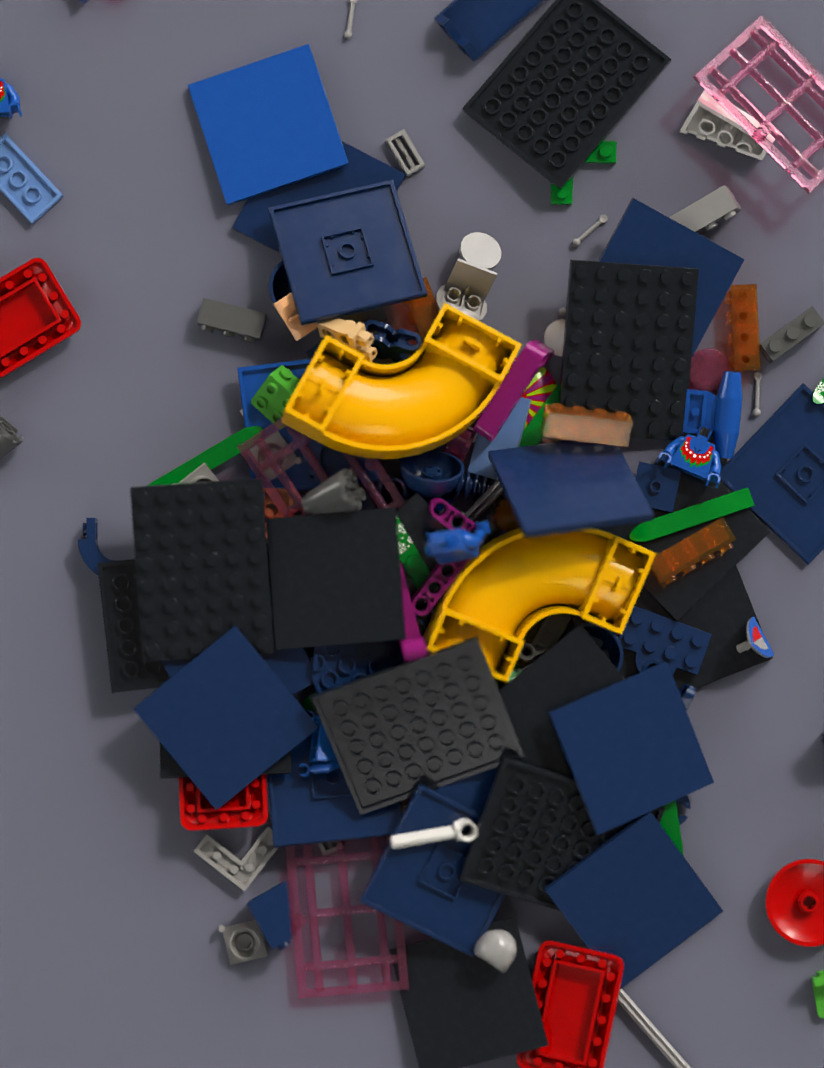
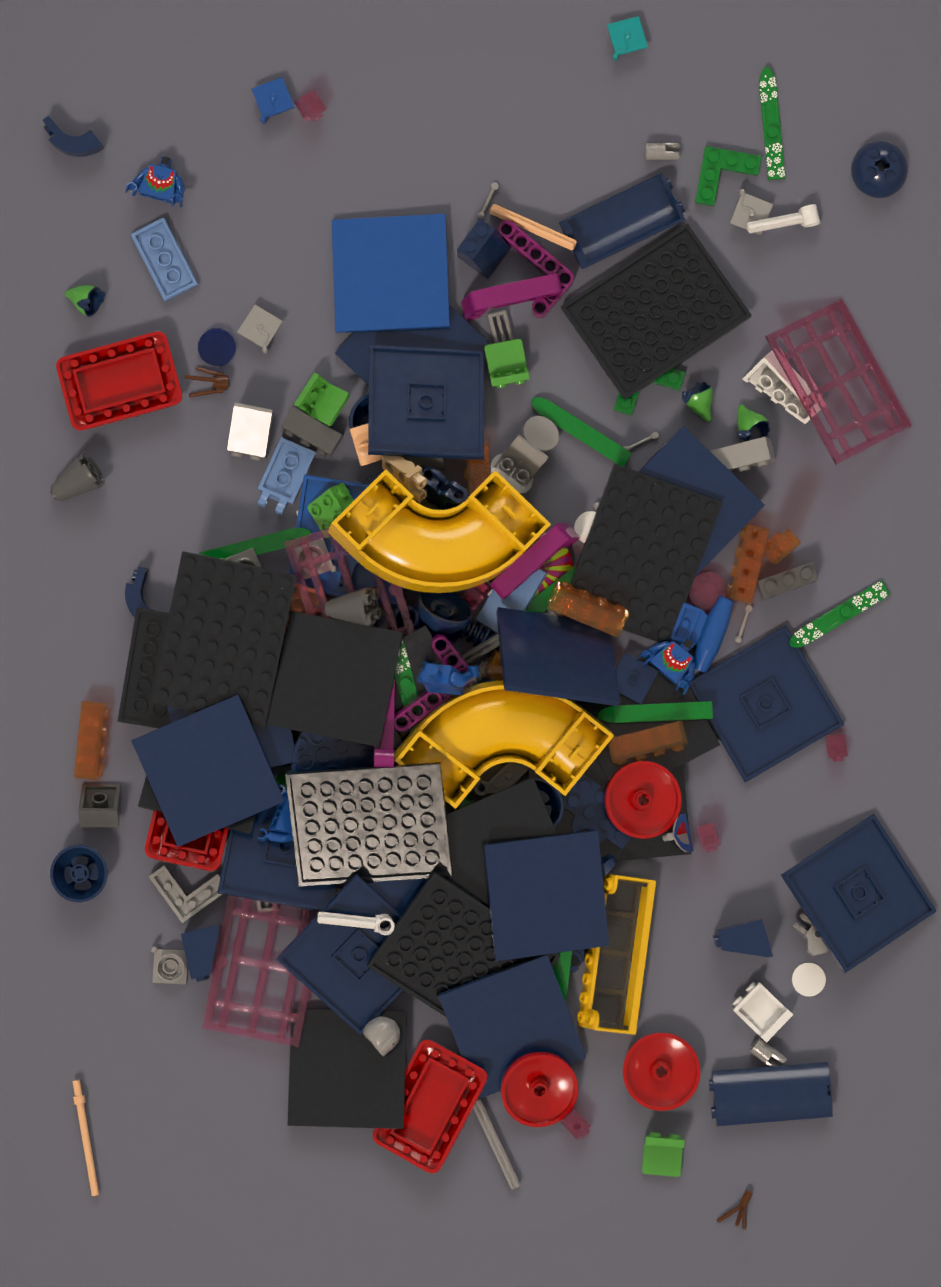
camera: 20 degrees right, 0 degrees up
(88, 721) = (90, 740): none -> clear orange brick
(103, 257) = (217, 347): none -> clear blue tile
(103, 875) = (65, 874): none -> dark blue piece
(115, 292) = (219, 381): none -> reddish brown plant
(118, 789) = (100, 805): none -> dark grey slope
(144, 222) = (260, 327): none -> light grey hat
(166, 338) = (250, 431): none -> slope
(216, 374) = (285, 474): none -> medium blue tile
(233, 282) = (322, 400): none -> bright green bracket
(360, 69) = (483, 249): none -> dark blue slope
(385, 119) = (513, 293): none -> magenta beam
(407, 31) = (533, 227): none -> light nougat axle
(421, 185) = (506, 362): none -> bright green bracket
(427, 70) = (539, 263): none -> magenta beam
(523, 236) = (581, 431): none -> green piece
(641, 166) = (700, 400): none -> bright green hat
(682, 960) = (539, 1089): none -> red dish
(704, 176) = (751, 424): none -> hat
(705, 614) = (642, 799): none -> red dish
(729, 809) = (616, 971): none -> window
(733, 986) = (576, 1124): none -> clear pink brick
(775, 298) = (780, 546): none -> clear orange brick
(786, 634) = (708, 837): none -> clear pink brick

